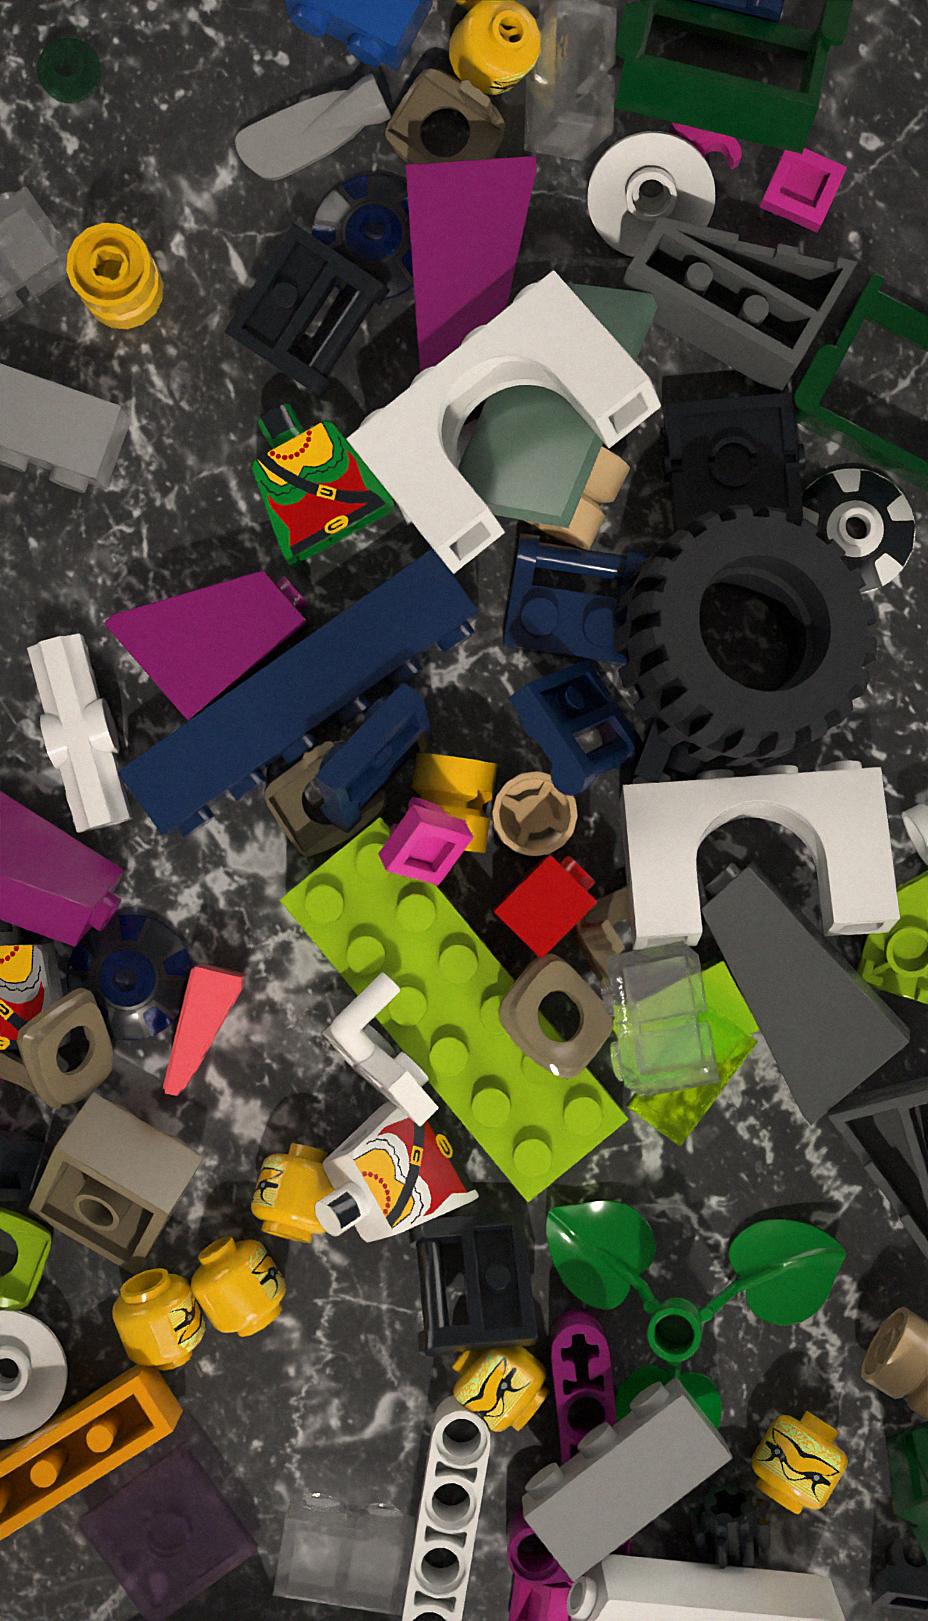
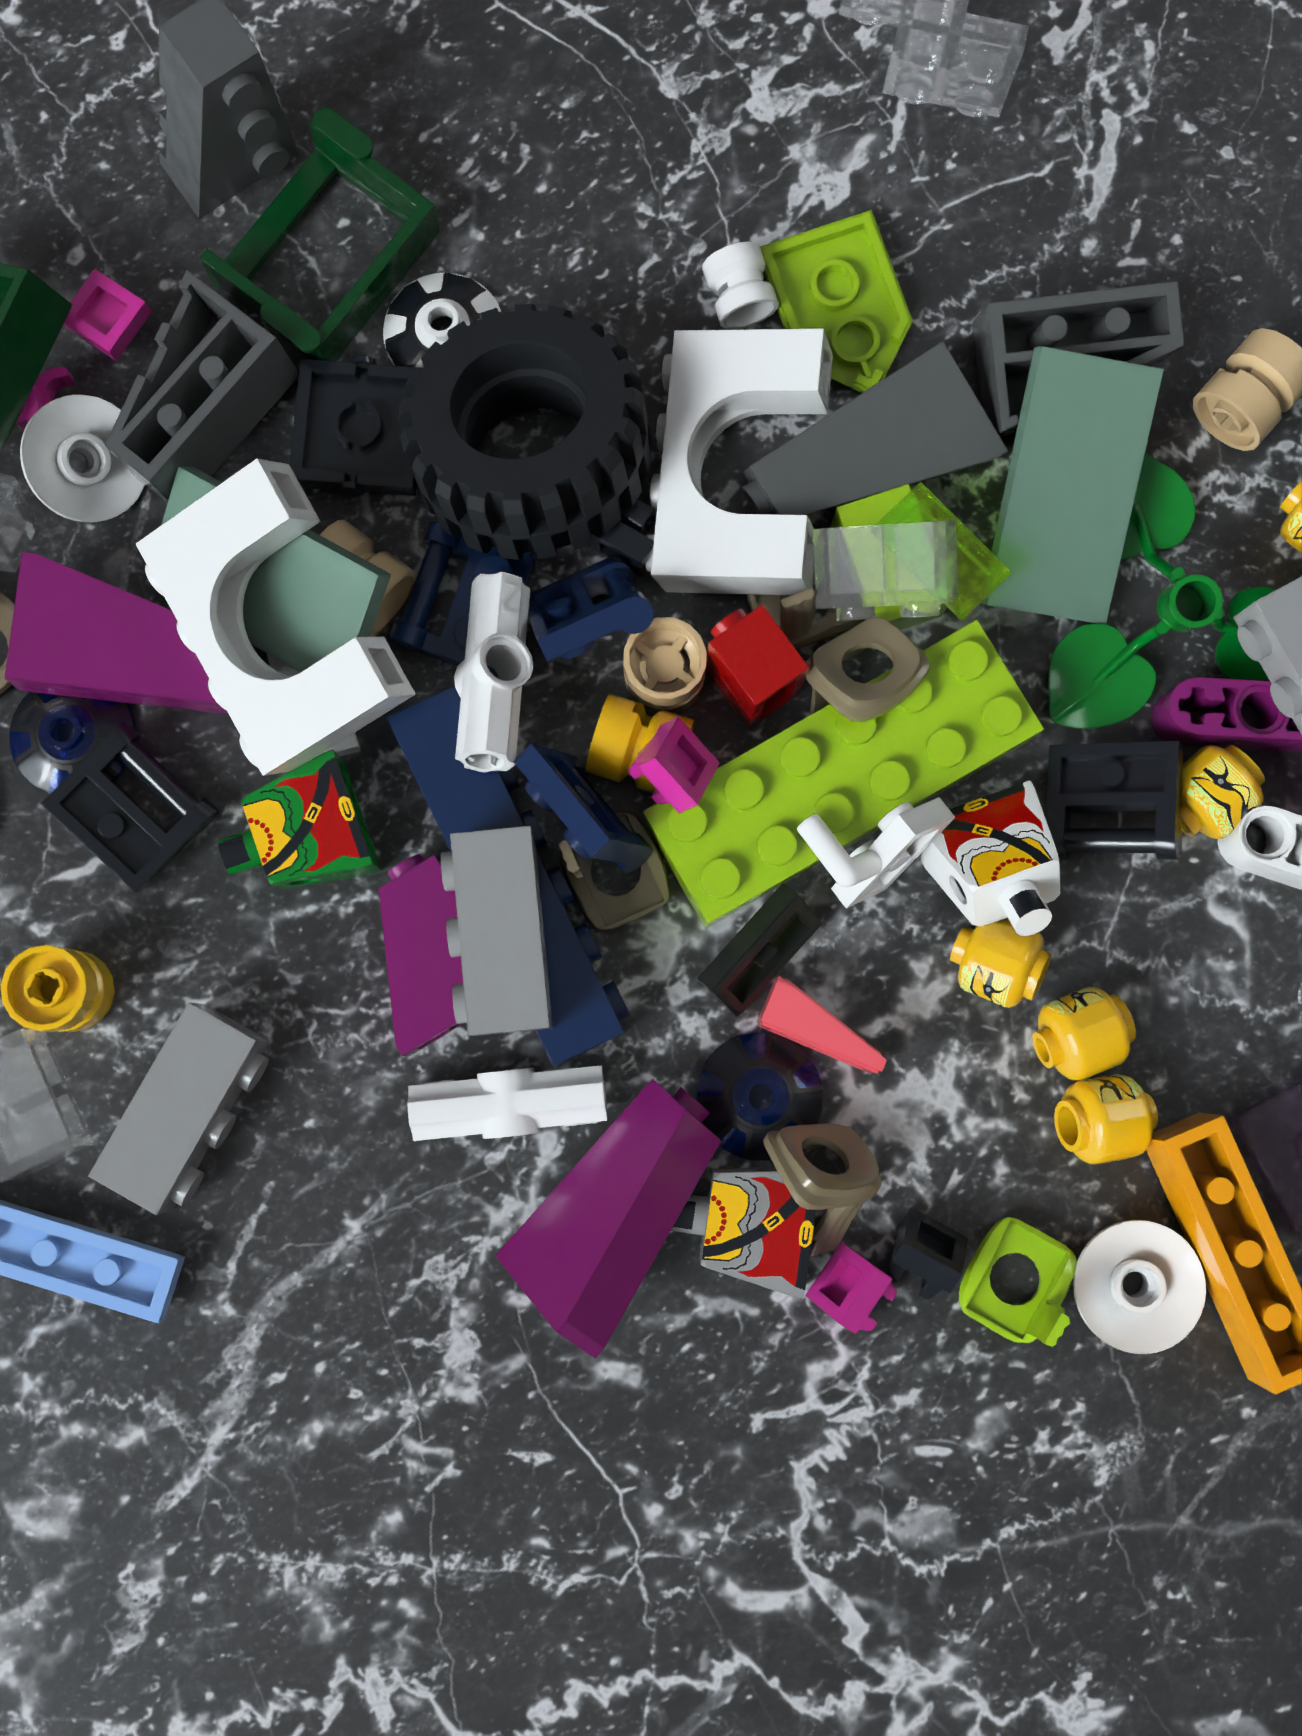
camera: 80 degrees left, 5 degrees down
(114, 1182) = (964, 1140): dark tan slope -> none
(231, 696) = (497, 931): none -> light grey brick
(268, 954) = (760, 950): none -> pearl dark grey tile
(456, 646) = (489, 704): none -> white piece
(787, 1195) = (1072, 483): none -> sand green tile

